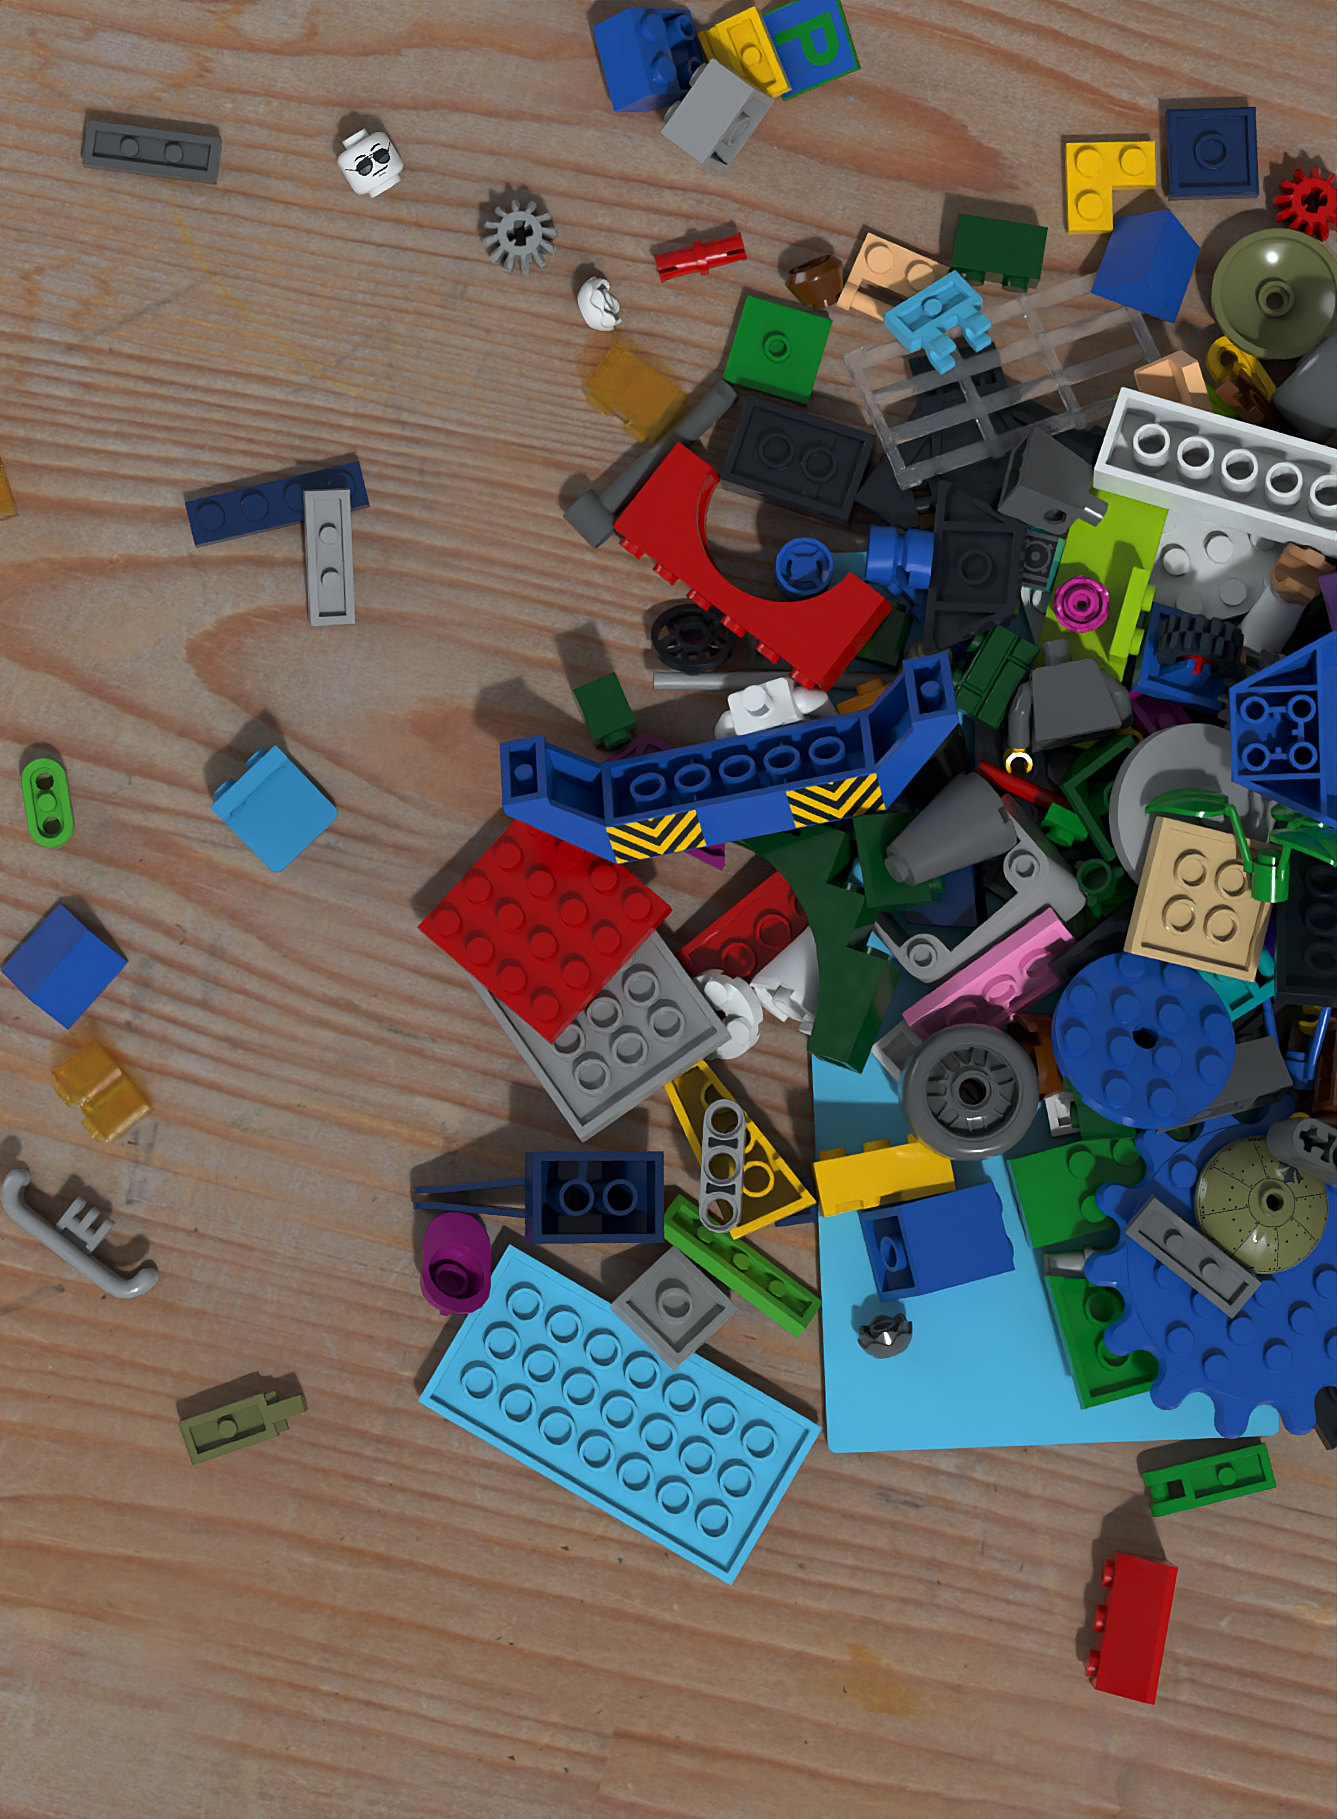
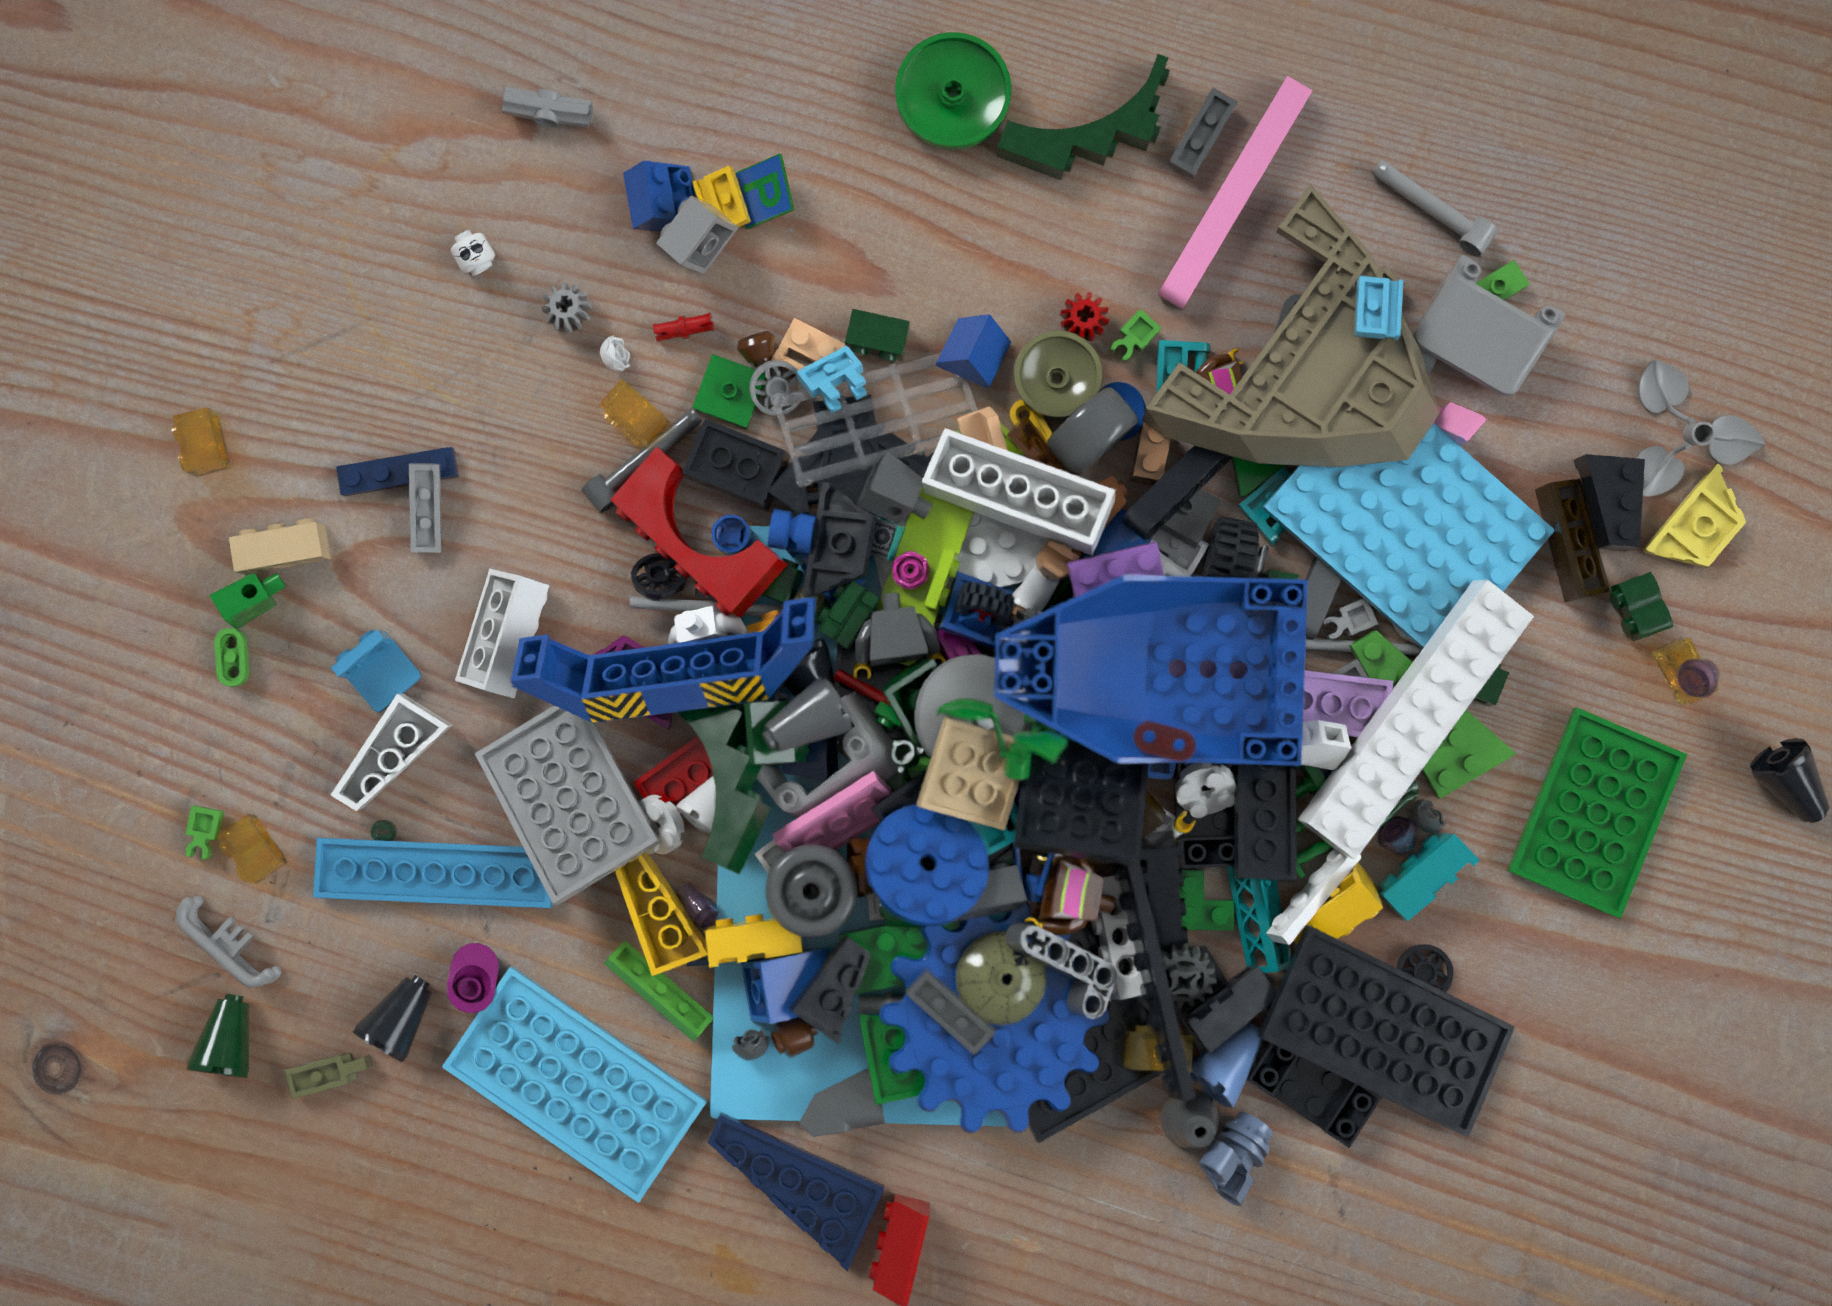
camera: 15 degrees right, 0 degrees up
(25, 1060) = (205, 826): none -> bright green plate
(56, 724) = (236, 599): none -> green torso
(63, 966) = (234, 765): blue slope -> none
(85, 1383) = (224, 1040): none -> dark green cone
(108, 630) = (279, 547): none -> tan brick
(152, 152) = (332, 237): dark grey plate -> none
(298, 1064) = (383, 824): none -> clear green hinge
(309, 920) = (392, 746): none -> white wedge
(344, 1333) = (396, 1018): none -> black cone
(377, 1110) = (427, 873): none -> dark azure plate
(455, 739) = (505, 613): none -> white slope
(544, 925) = (544, 761): red plate -> none
(578, 1197) = (551, 940): dark blue slope -> none
(605, 712) = (596, 621): dark green brick -> none
(673, 1308) = (613, 1017): light grey plate -> none
(719, 1143) = (636, 940): light grey beam -> none
(788, 1134) = (698, 906): none -> clear purple cone
(846, 337) = (773, 385): none -> light grey wheel
(949, 1317) = (793, 1037): none -> reddish brown head
(995, 1554) = (810, 1190): none -> dark blue wing
(1007, 1240) = (829, 993): none -> black wing
(1033, 1419) = (843, 1107): none -> dark grey panel
(1094, 172) = (945, 287): yellow plate -> none
(1210, 1479) = (960, 1152): green plate -> none
(1212, 153) = (1022, 280): dark blue plate -> none

